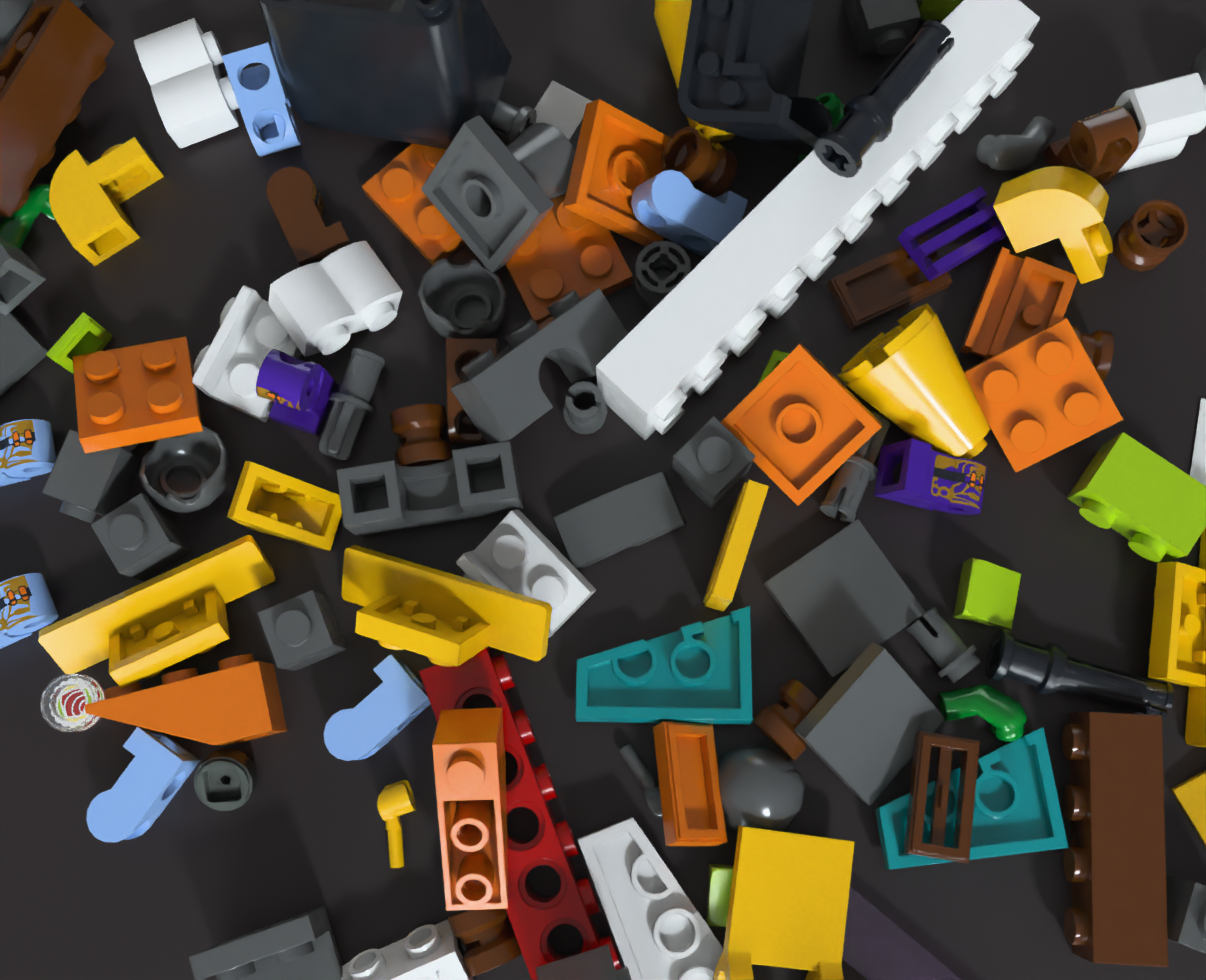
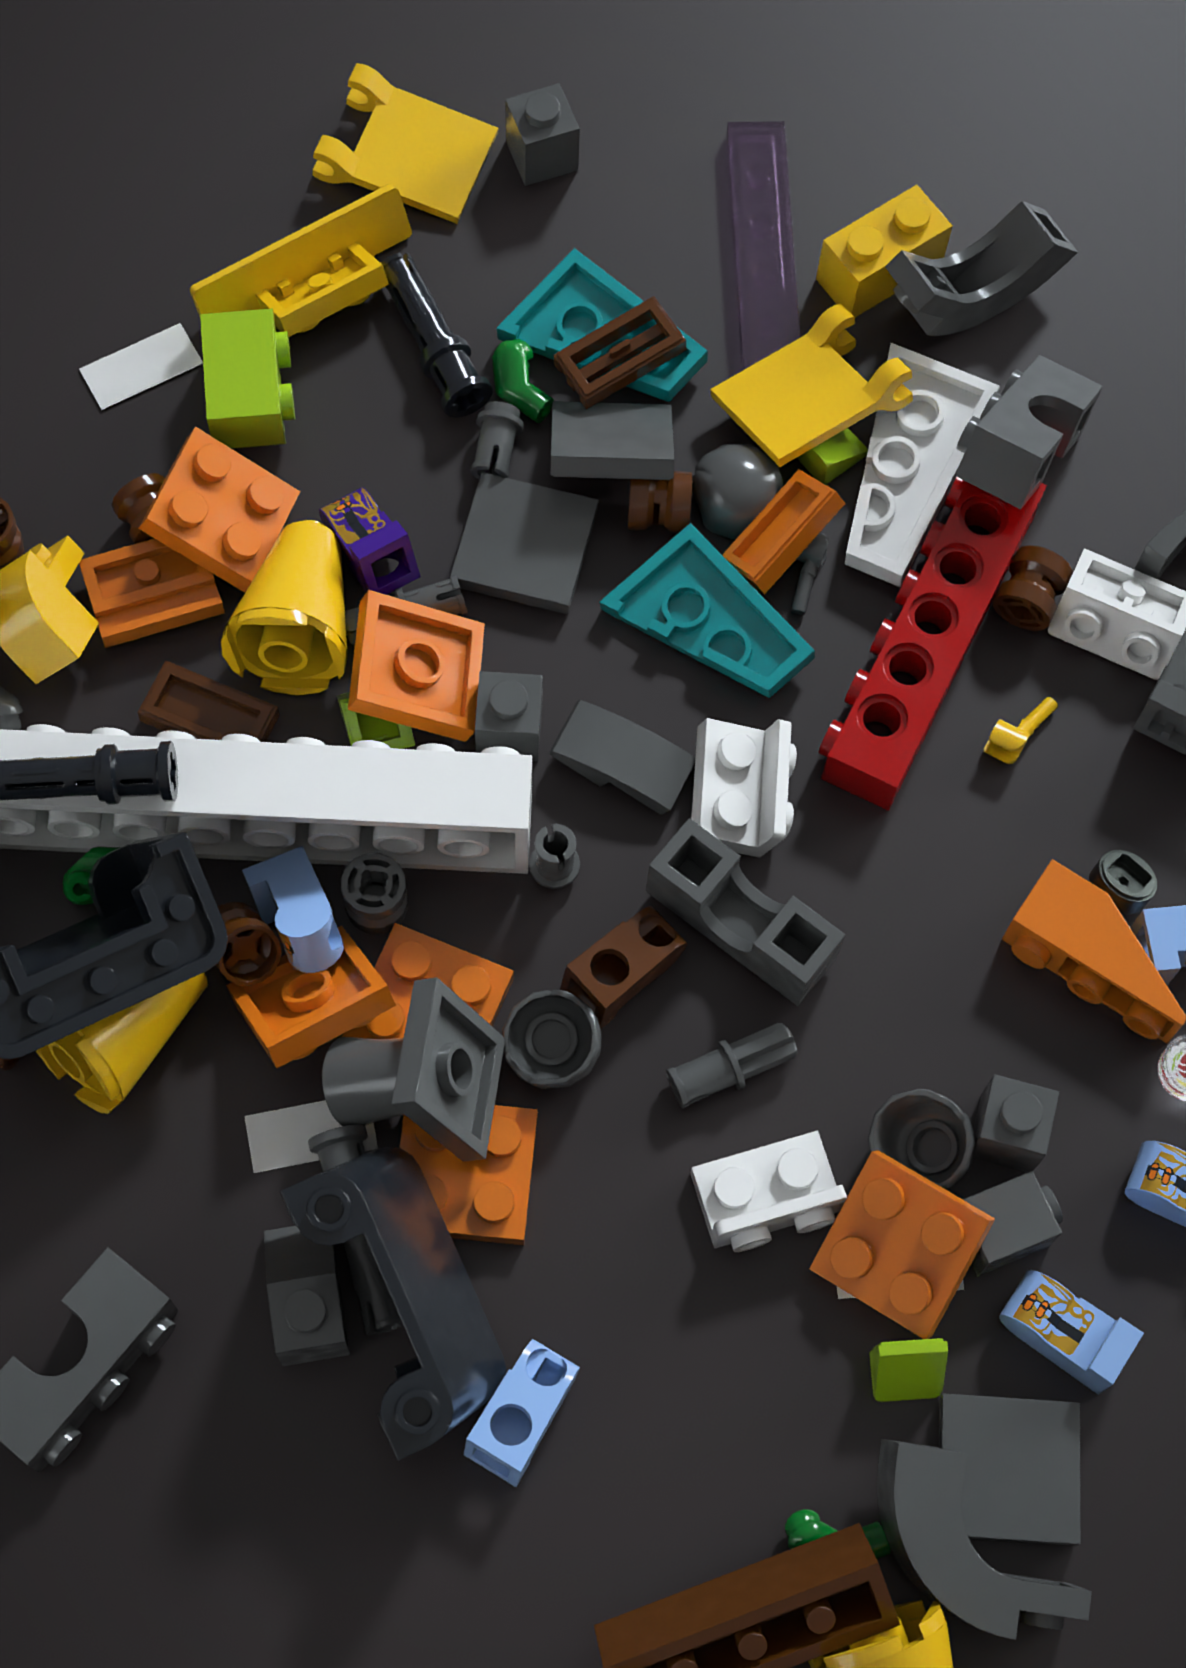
camera: 140 degrees left, 10 degrees down
(89, 195) = (773, 1488): yellow brick -> none
(160, 618) = (1061, 1040): yellow bracket -> none
(187, 82) = (568, 1506): white brick -> none
(285, 507) = (871, 1030): yellow slope -> none
(298, 391) = (766, 1104): dark purple leg -> none
(299, 212) = (598, 1278): reddish brown leg -> none
(302, 631) = (955, 918): dark grey brick -> none
(335, 298) = (654, 1149): white brick -> none
(378, 717) = (958, 805): light blue leg -> none
(421, 435) = (706, 971): reddish brown wheel -> none
(439, 611) = (842, 815): yellow bracket -> none
(472, 807) = (952, 649): orange slope -> none
(505, 390) = (602, 912): dark grey arch -> none
(735, 546) = (571, 629): yellow tile -> none
(981, 215) = (121, 664): dark purple tile -> none
(987, 594) = (424, 444): lime slope -> none
(1116, 839) = (531, 227): reddish brown brick -> none

